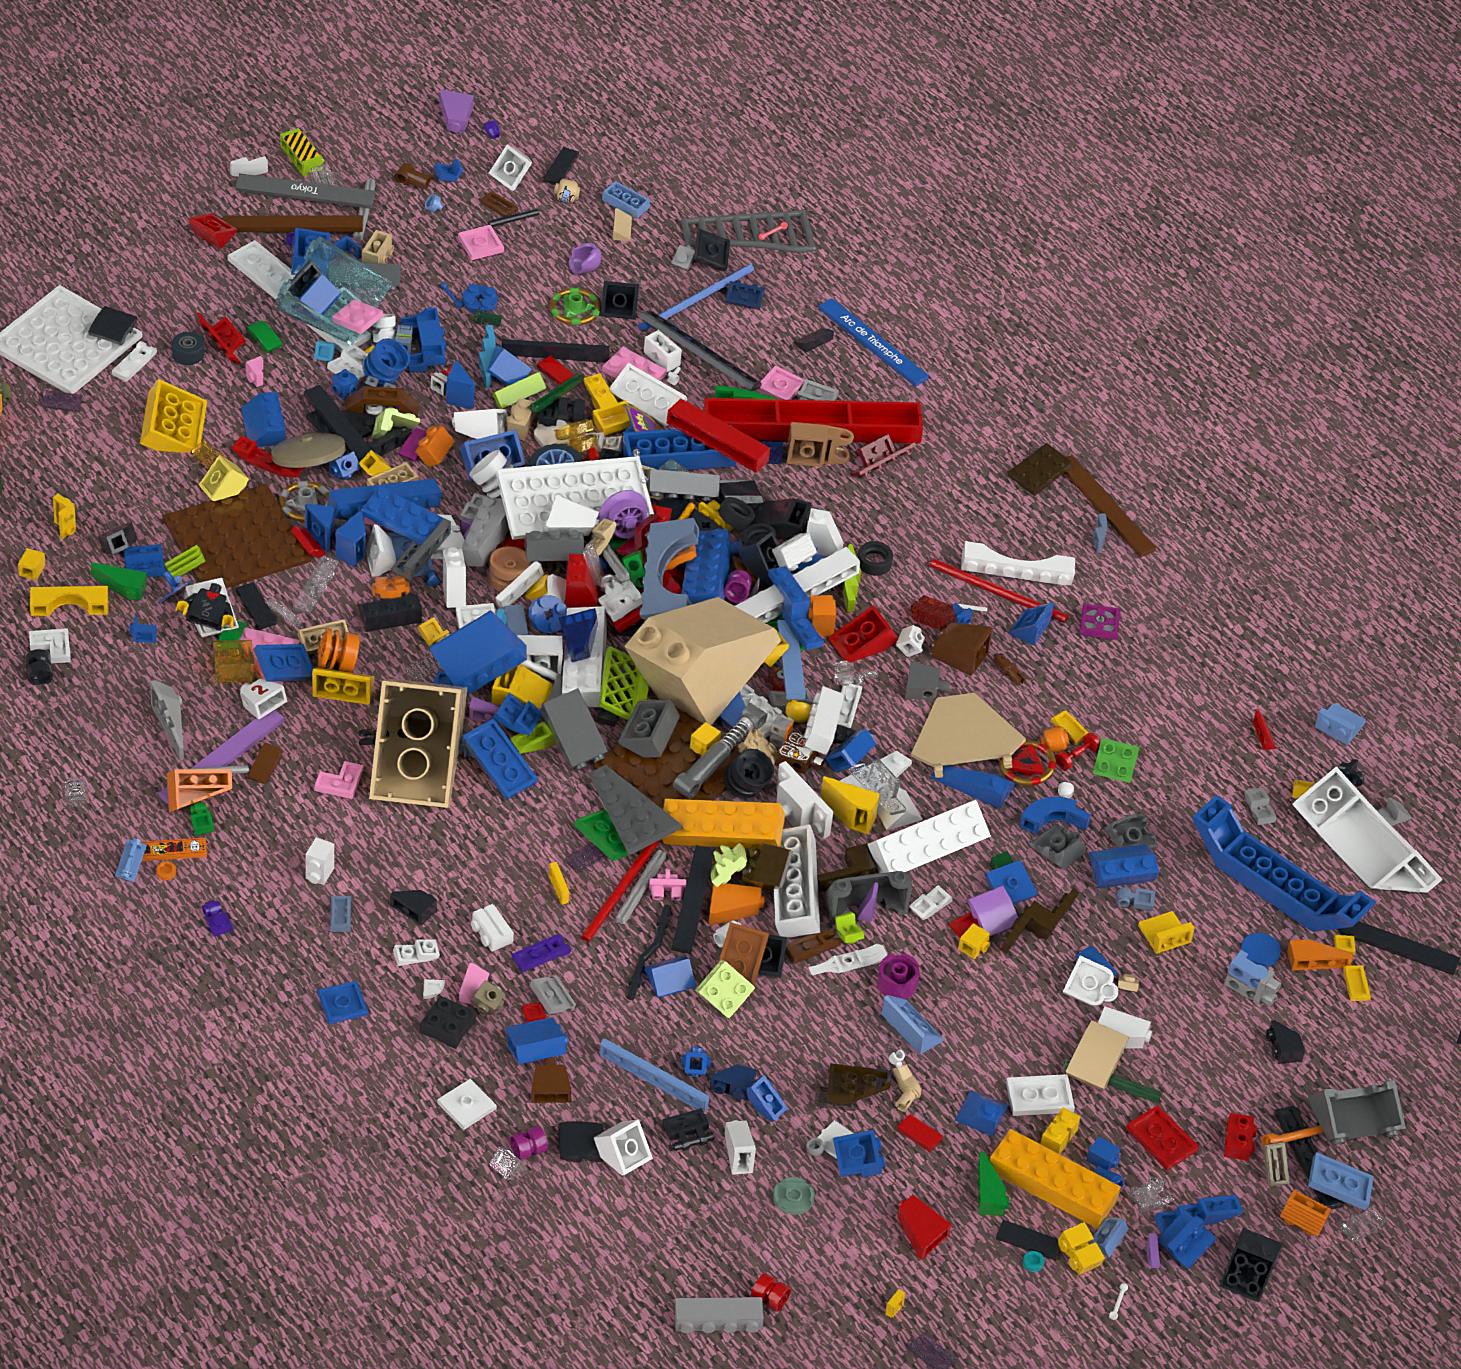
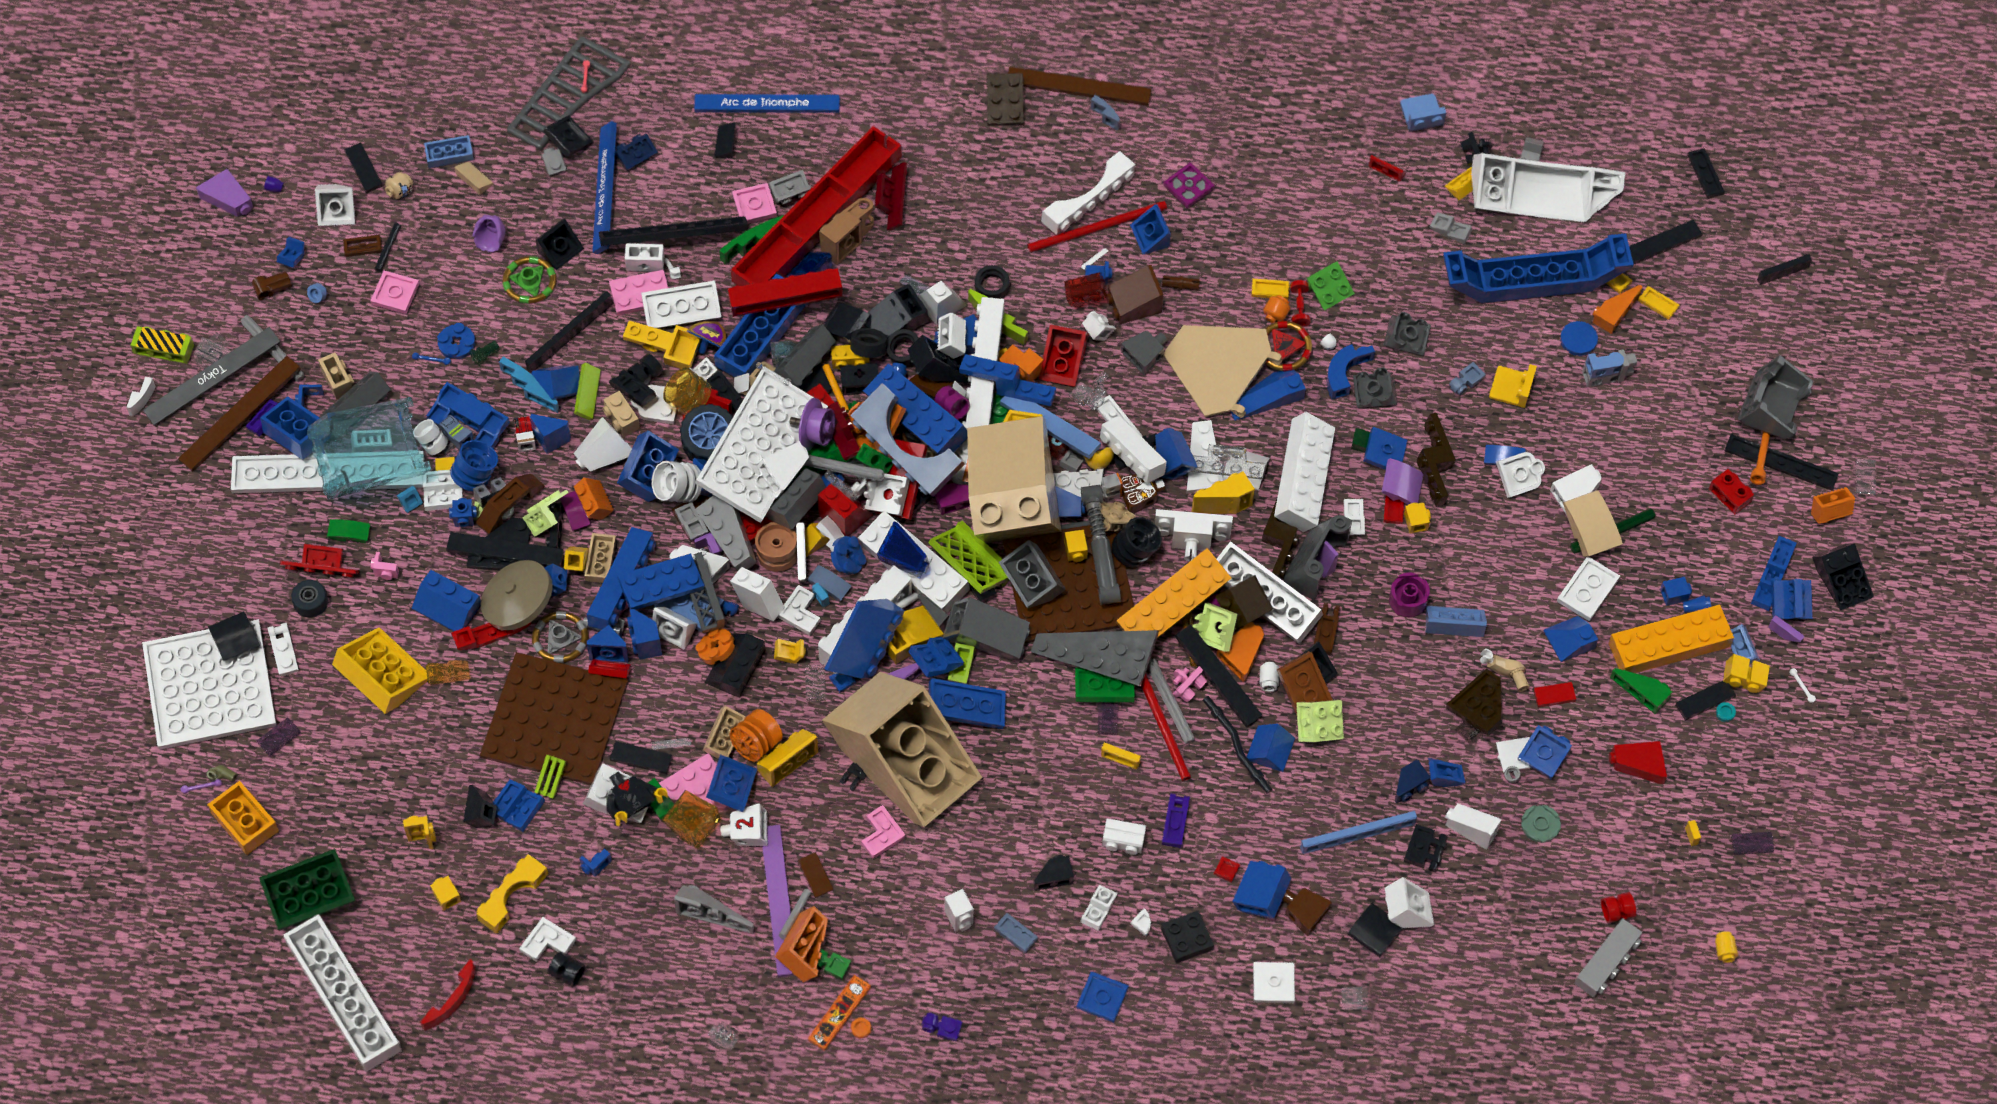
camera: 45 degrees left, 15 degrees up
(123, 581) = (527, 838): green slope -> none
(131, 859) = (832, 1047): medium blue hinge -> none
(173, 583) = (577, 803): blue shield -> none
(212, 229) = (190, 477): red slope -> none
(223, 480) = (488, 682): light yellow slope -> none
(304, 278) = (334, 454): black slope -> none
(316, 585) = (660, 696): clear bracket -> none
(320, 295) = (359, 460): slope -> none
(357, 316) = (411, 449): bright pink plate -> none
(473, 979) = (1165, 891): bright pink slope -> none
(488, 998) = (1191, 891): dark tan brick -> none
(527, 1143) = (1350, 967): magenta wheel -> none
(552, 994) = (1222, 843): light grey plate -> none
(554, 370) = (587, 348): red tile -> none
(556, 393) = (620, 367): dark green axle -> none
(603, 534) = (821, 457): tan slope -> none
(696, 1069) = (1372, 794): blue brick -> none
(847, 928) = (1334, 593): lime bracket -> none
(859, 958) = (1363, 604): white piece -> none
(1061, 1130) = (1638, 609): yellow piece -> none
(1123, 866) = (1432, 362): blue slope -> none
(1128, 982) = (1539, 448): tan plate -> none
(1148, 1196) = (1733, 592): clear animal -> none
(1162, 1137) = (1690, 540): red plate -> none
(1268, 1164) = (1776, 491): dark tan tile -> none
(1286, 1043) = (1676, 393): black slope -> none
(1340, 1181) = (1823, 460): medium blue plate -> none

